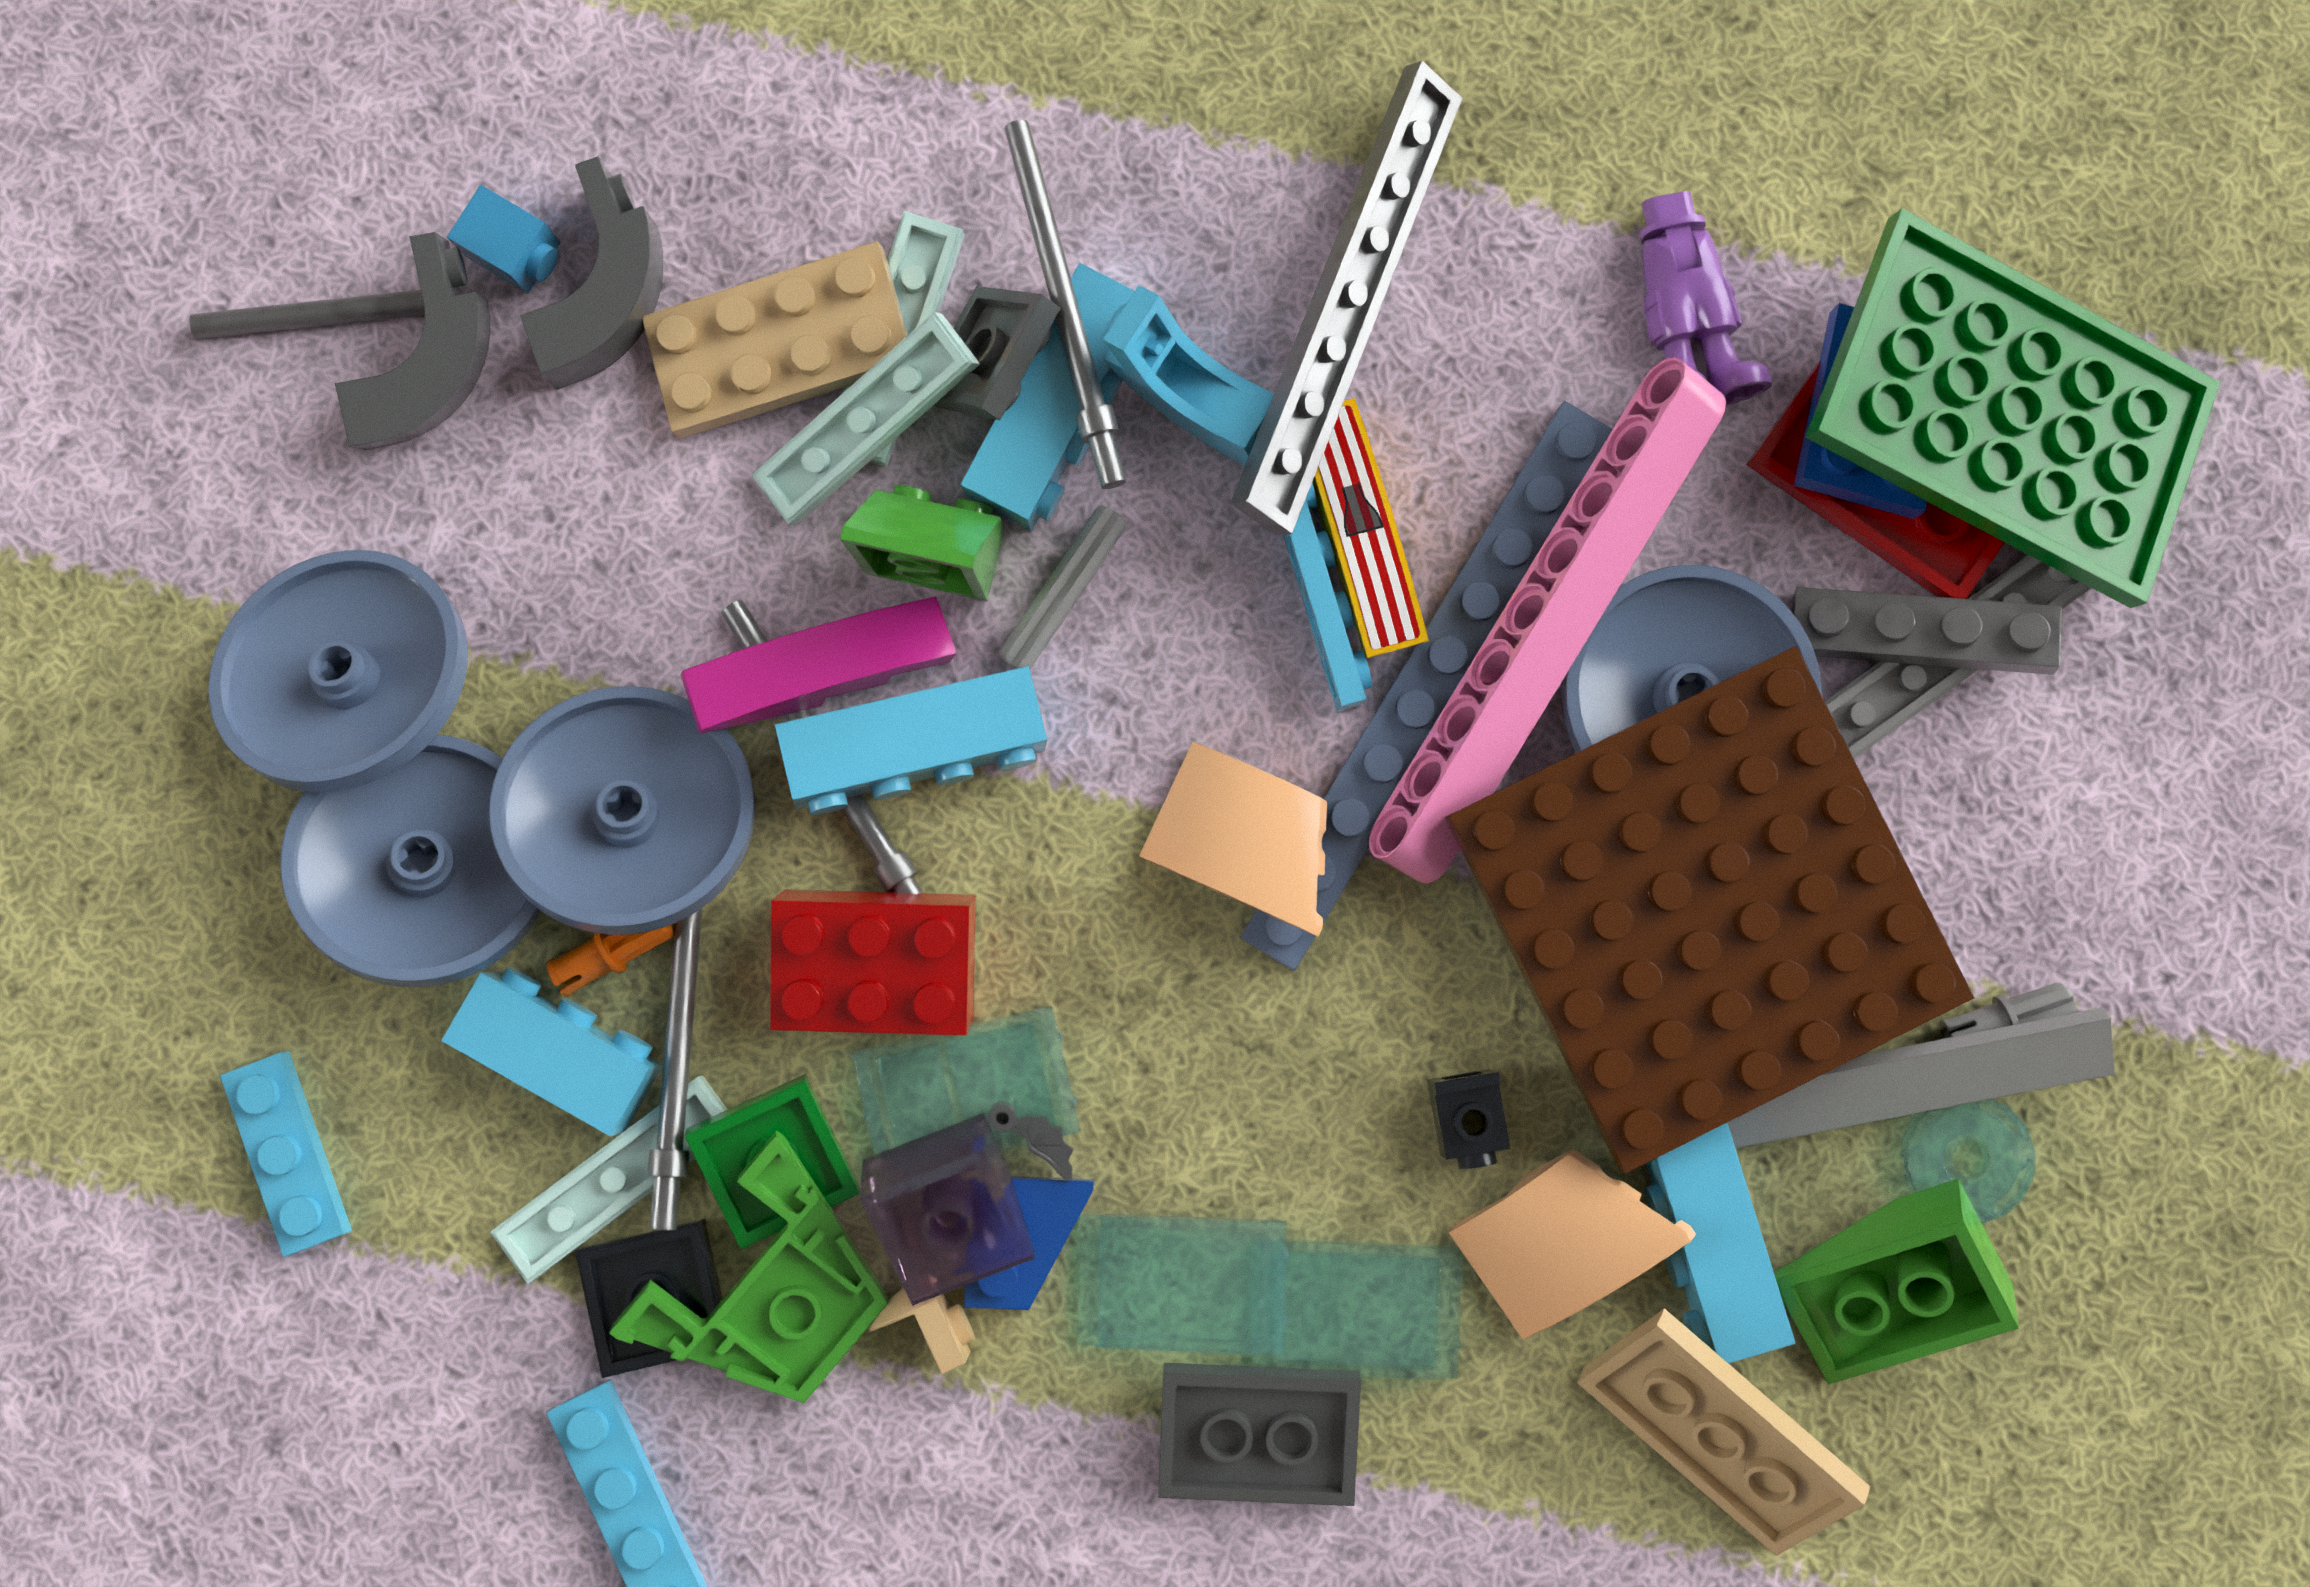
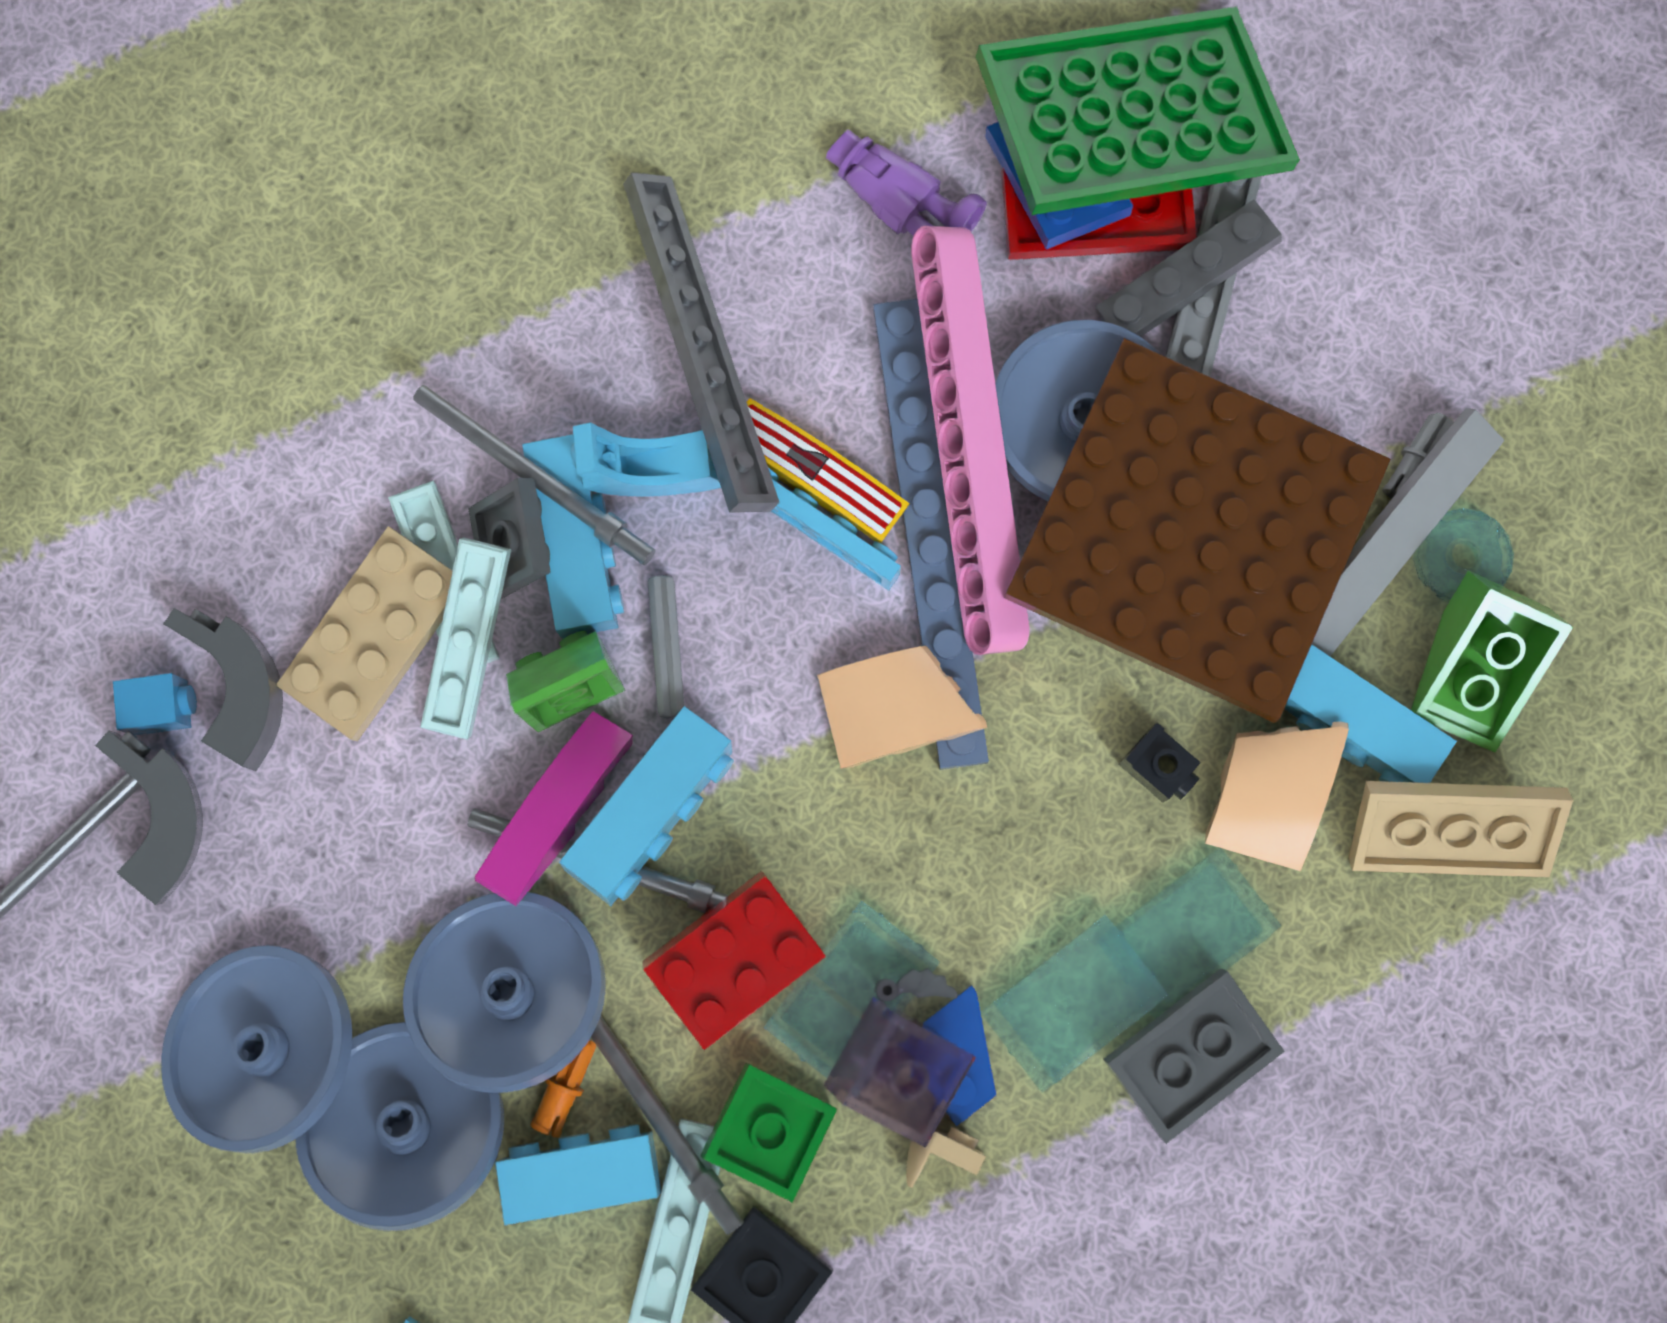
camera: 40 degrees left, 5 degrees down
(791, 1307) = (852, 1213): bright green wing -> none

